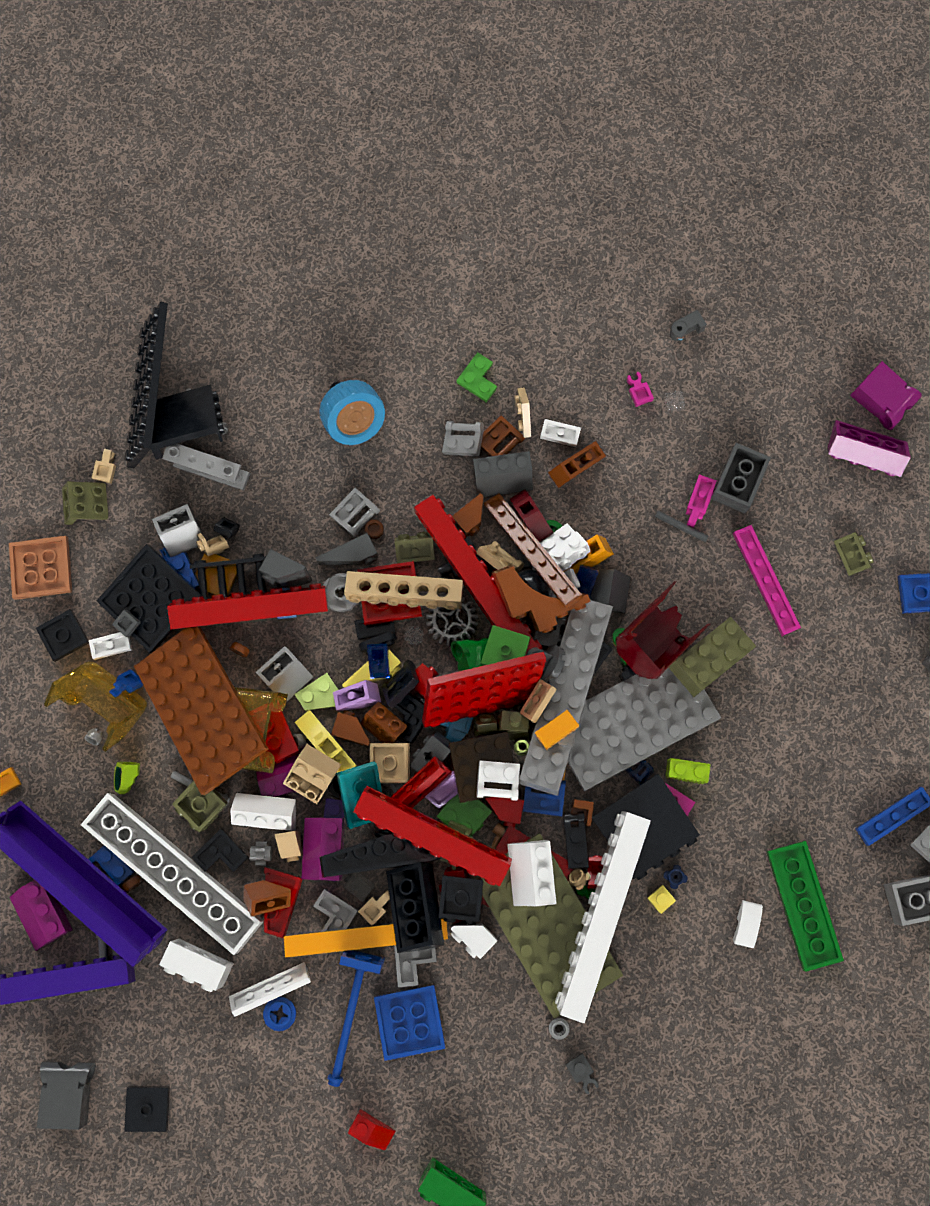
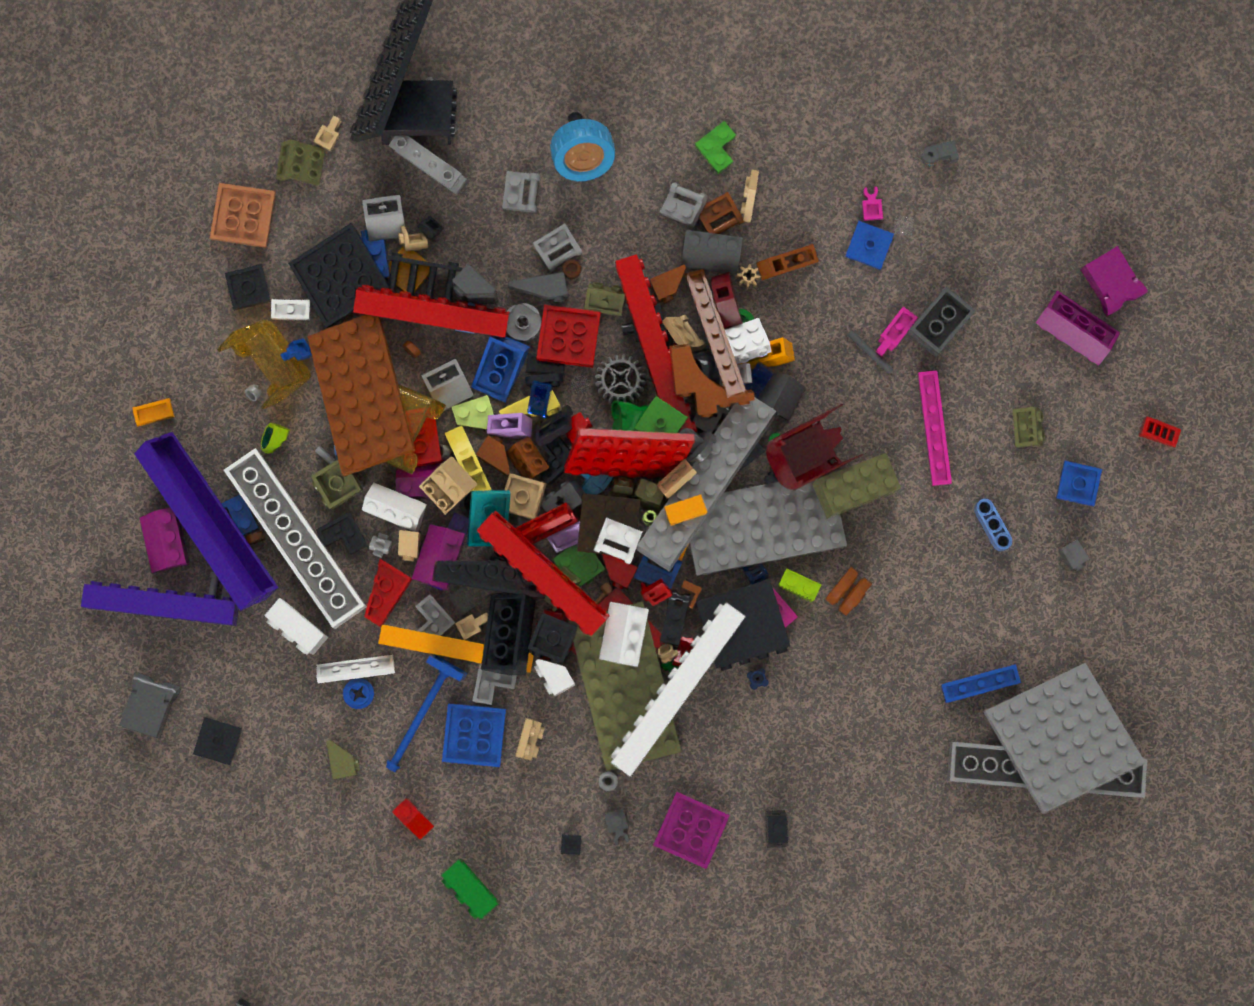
camera: 15 degrees right, 5 degrees up
(126, 623) = (312, 293): dark grey plate -> none
(265, 897) = (375, 585): dark orange slope -> none
(281, 1092) = (342, 762): none -> olive slope
(298, 470) = (515, 188): none -> light grey plate
(331, 641) = (500, 367): none -> blue slope
(357, 580) = (577, 329): tan brick -> none
(467, 1016) = (527, 746): none -> tan plate
(541, 1108) = (571, 844): none -> black plate
(548, 484) = (753, 276): none -> tan gear
(549, 820) = (655, 592): none -> red bracket
(560, 433) = (780, 226): white plate -> none
(648, 427) = (869, 245): none -> blue plate
(658, 1055) = (691, 830): none -> magenta plate
(661, 899) = (738, 695): light yellow plate -> none
(738, 762) = (848, 591): none -> dark orange wheel
(744, 1026) = (776, 829): none -> black torso
(748, 924) = (810, 740): white slope -> none
(804, 906) = (868, 739): green plate -> none
(862, 660) = (984, 519): none -> medium blue beam

